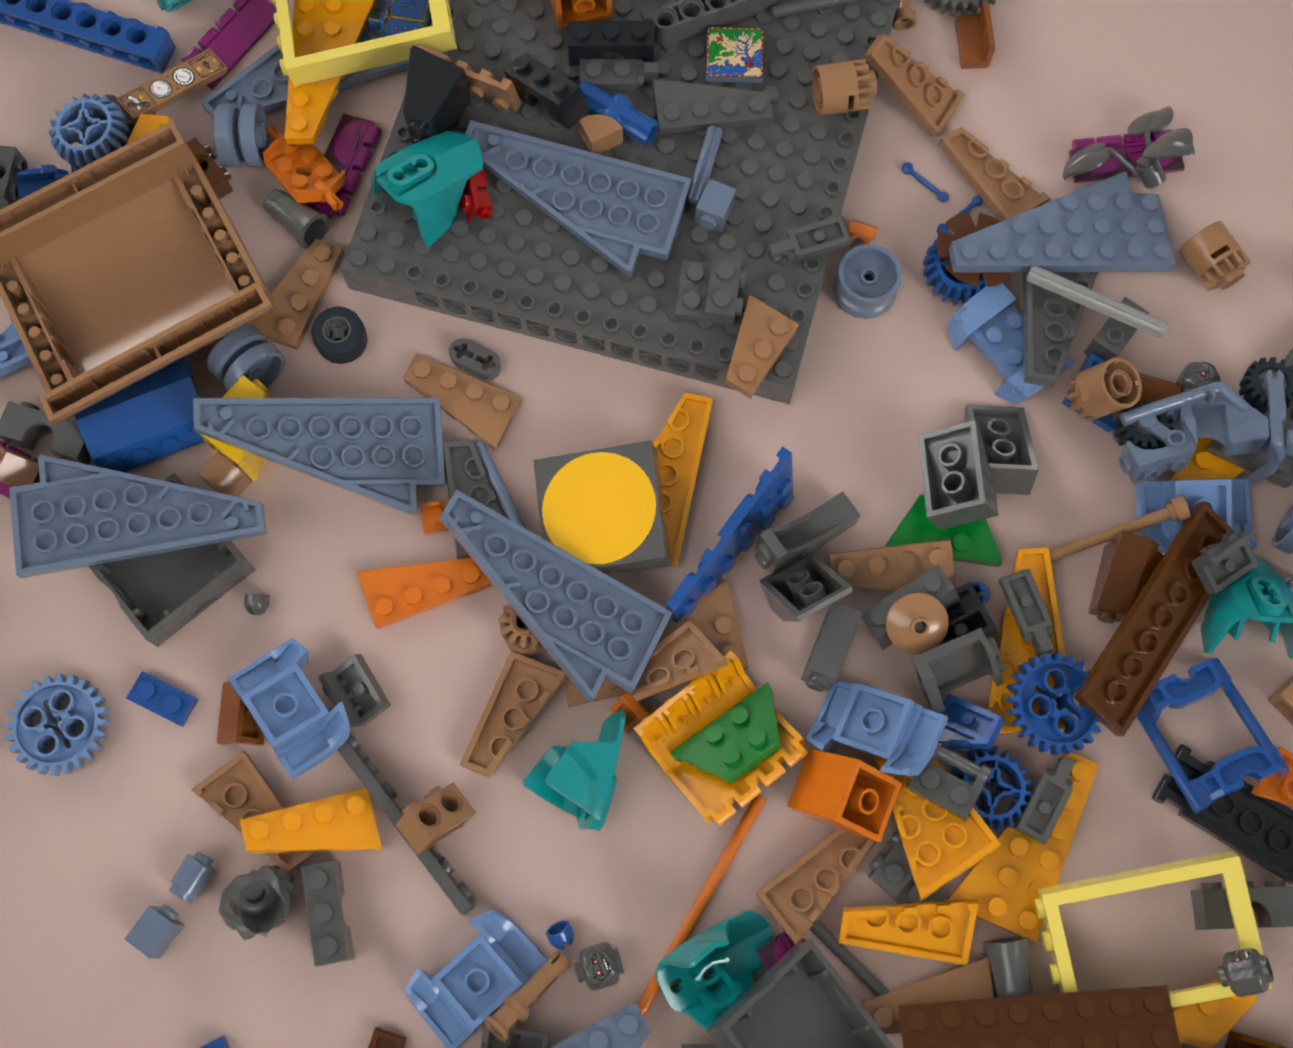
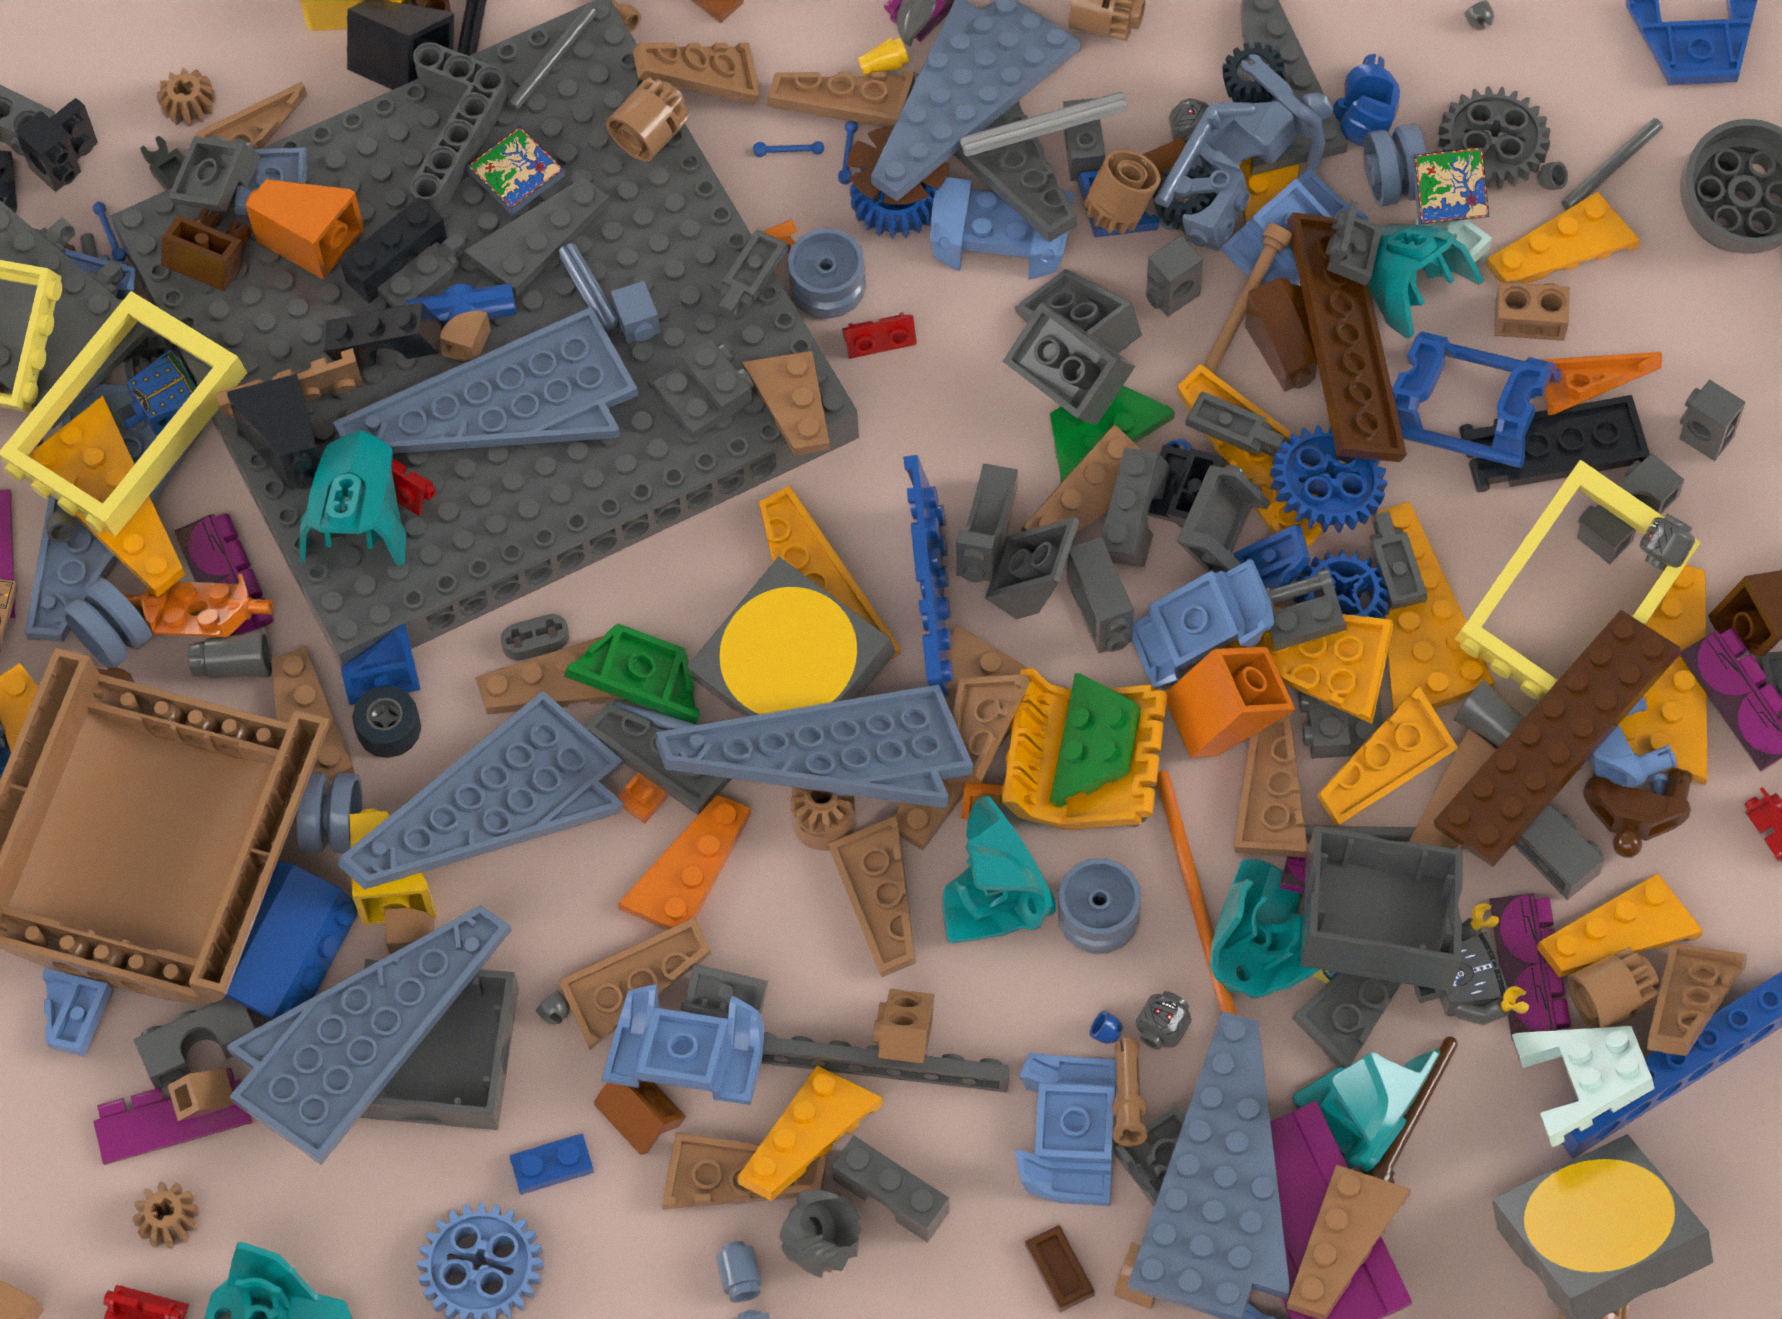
camera: 40 degrees left, 10 degrees down
(273, 55) = (64, 524): none -> dark grey hinge
(316, 627) = (600, 989): none -> medium nougat wing
(367, 299) = (382, 664): none -> blue wing
(508, 436) = (639, 671): none -> green wing
(650, 848) = (1099, 905): none -> sand blue wheel
(855, 346) = (881, 336): none -> red hinge
(913, 609) = (1139, 514): medium nougat dish -> none
(1040, 173) = (885, 57): none -> yellow cone
(1086, 474) = (1174, 276): none -> dark grey brick

